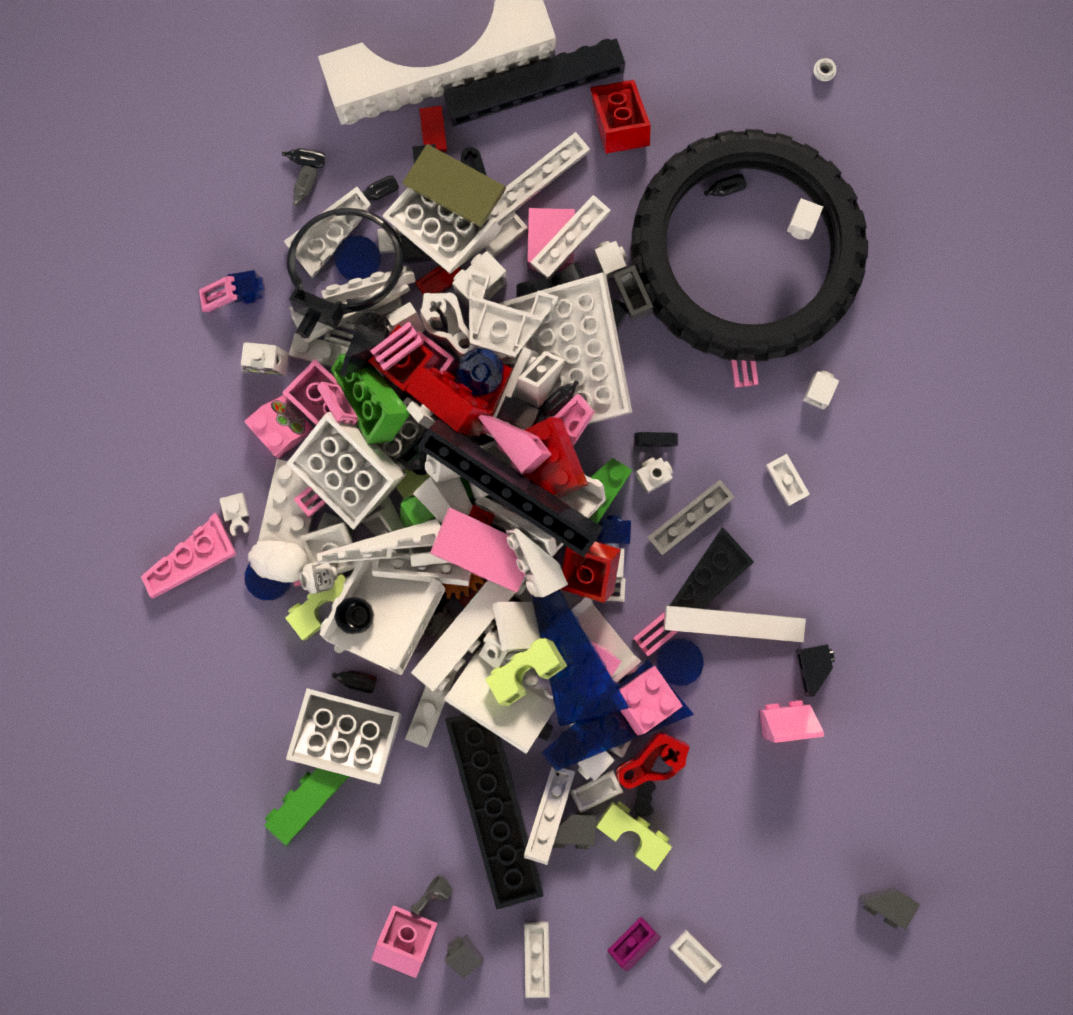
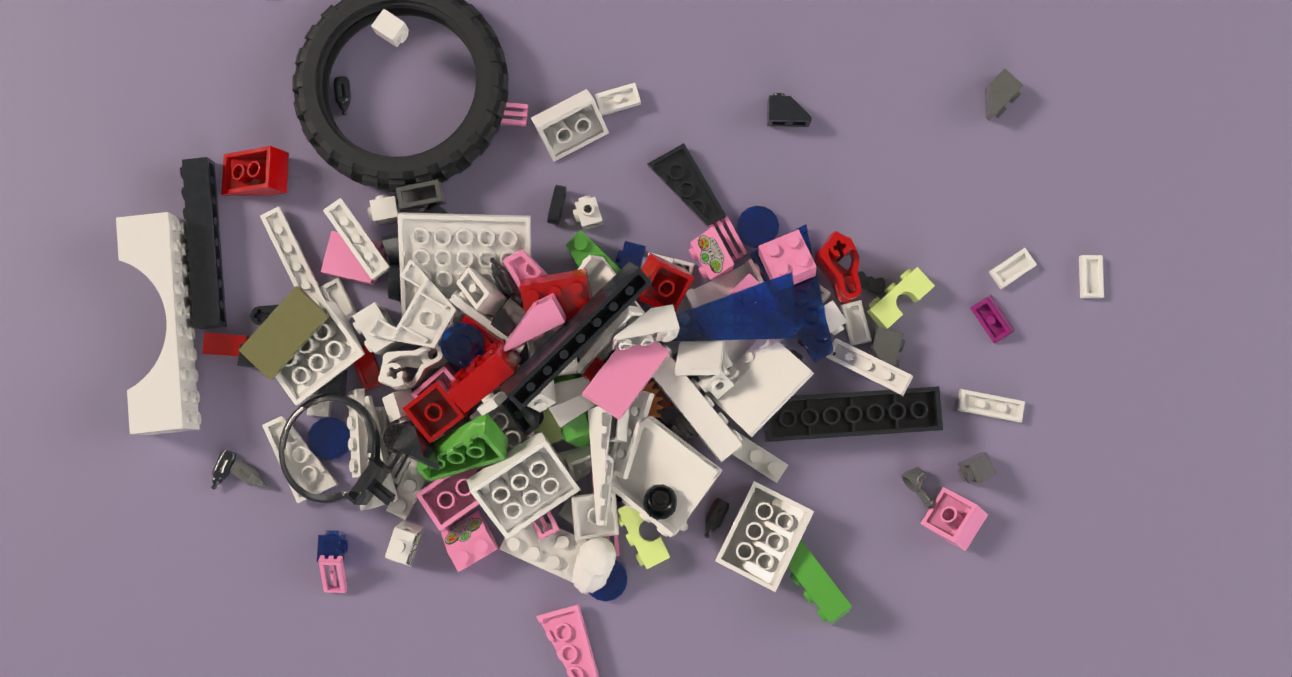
camera: 75 degrees left, 0 degrees up
(234, 510) = (536, 597): white plate -> none
(318, 577) = (617, 530): white head -> none
(337, 403) = (462, 479): bright pink tile -> none
(381, 188) = (269, 403): black piece -> none
(390, 340) = (407, 399): bright pink tile -> none
(507, 680) = (746, 376): yellowish green arch -> none
(635, 617) = (711, 255): none -> slope
(690, 517) = (633, 190): light grey plate -> none
(734, 624) = (734, 172): white tile -> none
(746, 434) = (570, 125): none -> white slope
(789, 722) = (830, 142): bright pink slope -> none
(821, 389) = (544, 52): white brick -> none

